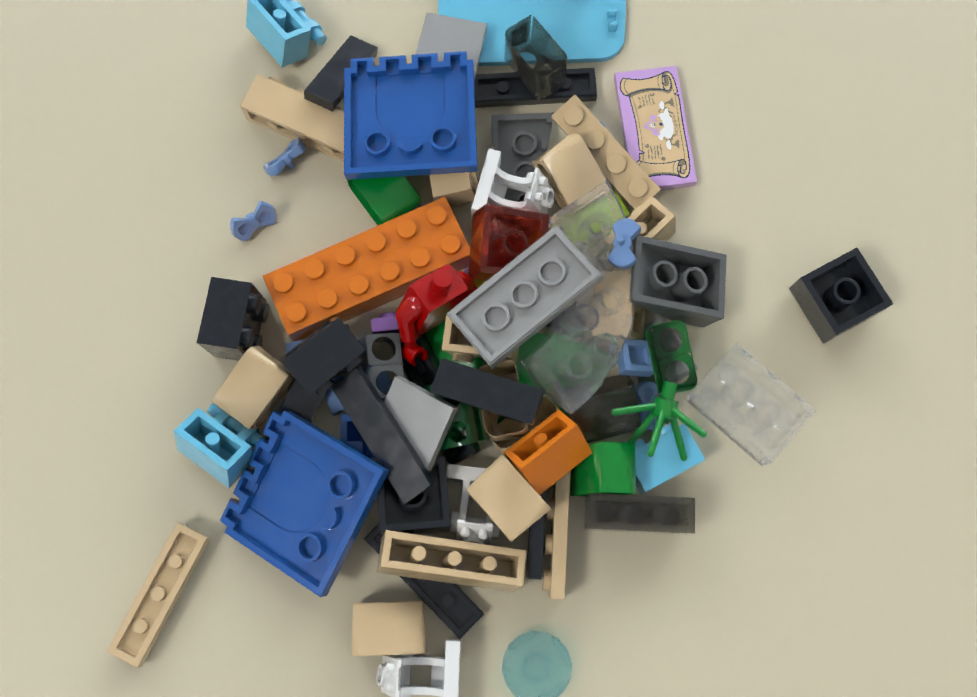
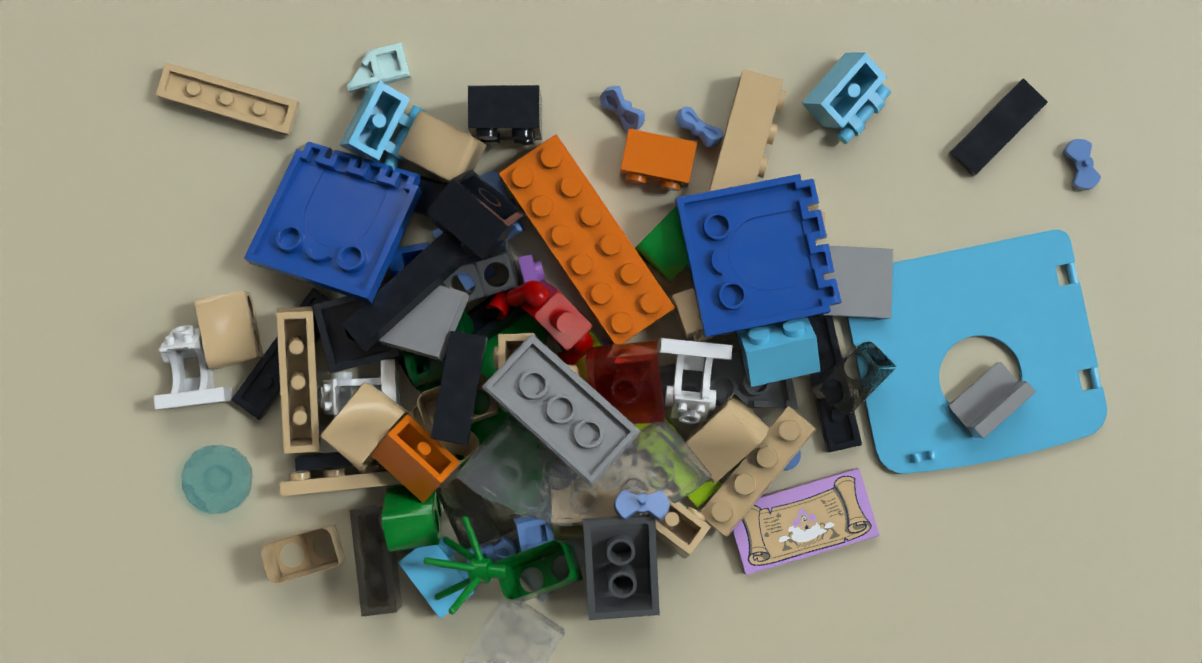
camera: 80 degrees right, 10 degrees up
(160, 438) = (381, 64): none -> light aqua tile
(306, 196) = (657, 159): none -> orange brick
(328, 85) = (782, 160): black tile -> none
(500, 113) = (779, 351): none -> medium azure brick
(640, 593) = (274, 567): none -> tan piece

